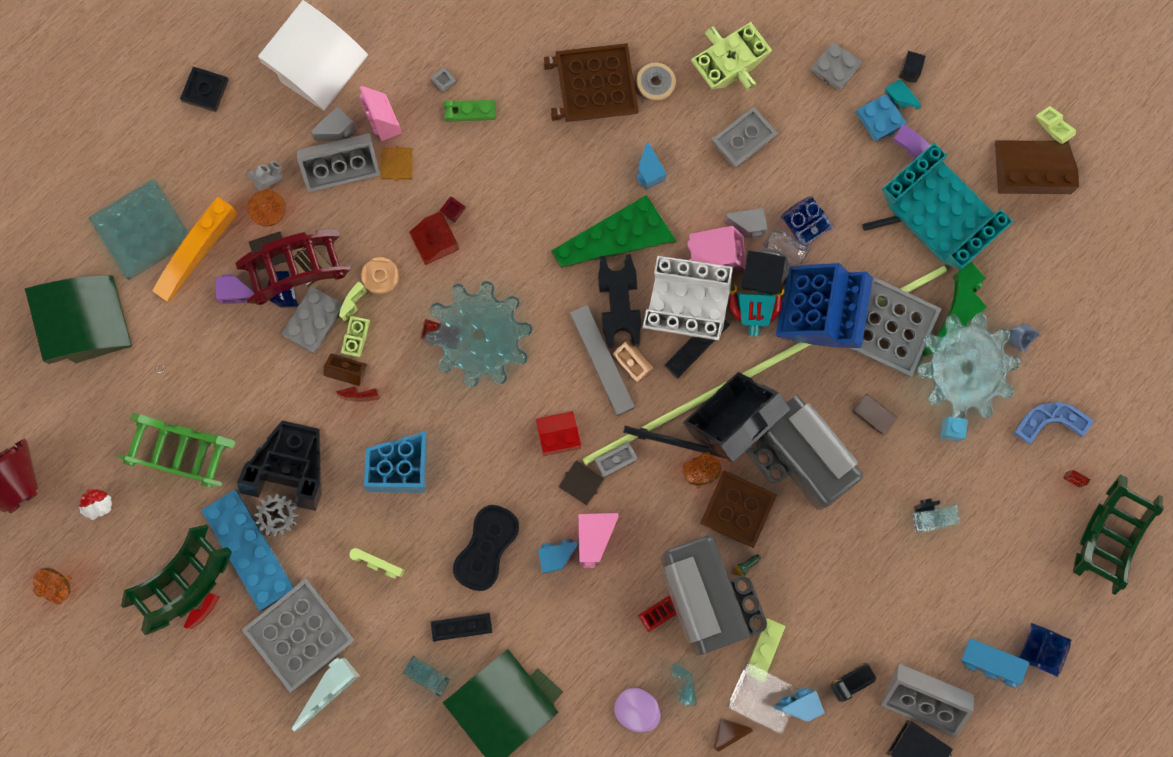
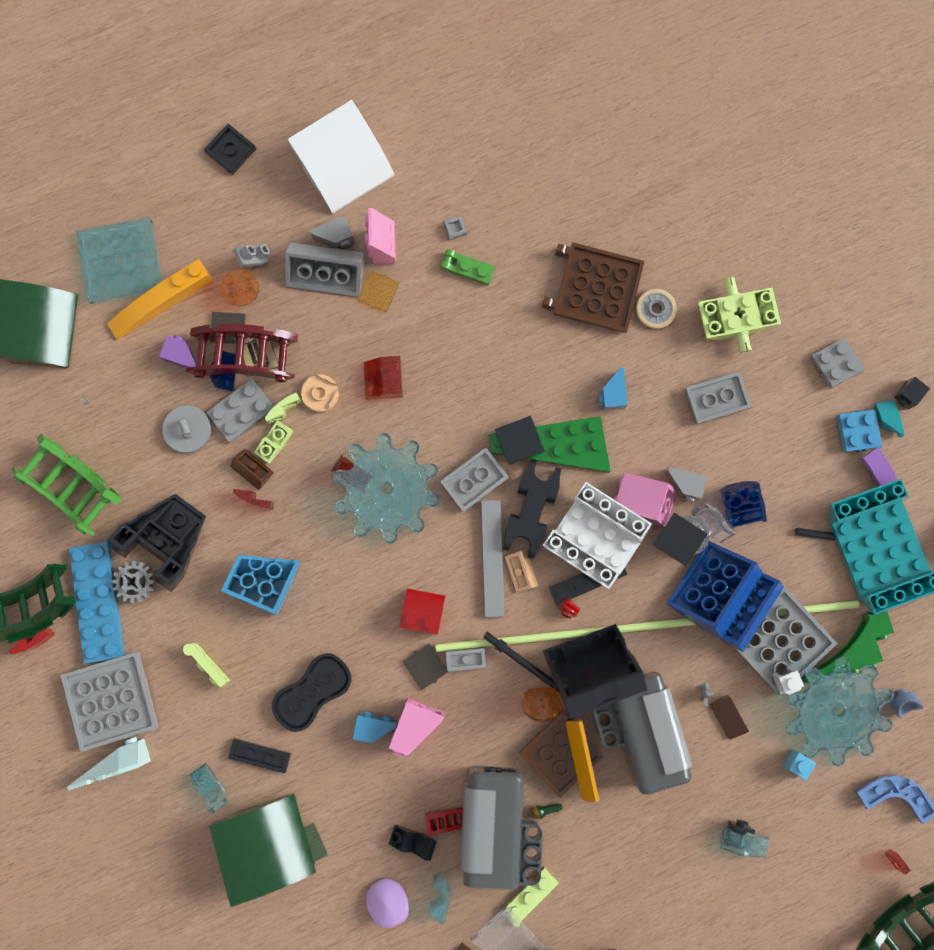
camera: 25 degrees right, 5 degrees up
(268, 357) = (186, 429): none -> light grey shield
(452, 209) = (412, 356): dark red tile -> none
(555, 296) = (474, 479): none -> light grey plate
(582, 243) = (519, 440): none -> black tile
(637, 645) = (413, 842): none -> black slope
(690, 376) = (568, 608): none -> red plate
(755, 309) = (657, 570): teal torso -> none
(759, 504) = (582, 760): none -> light orange slope
(844, 400) = (705, 693): none -> light grey plant
(912, 358) = (788, 683): none -> white window

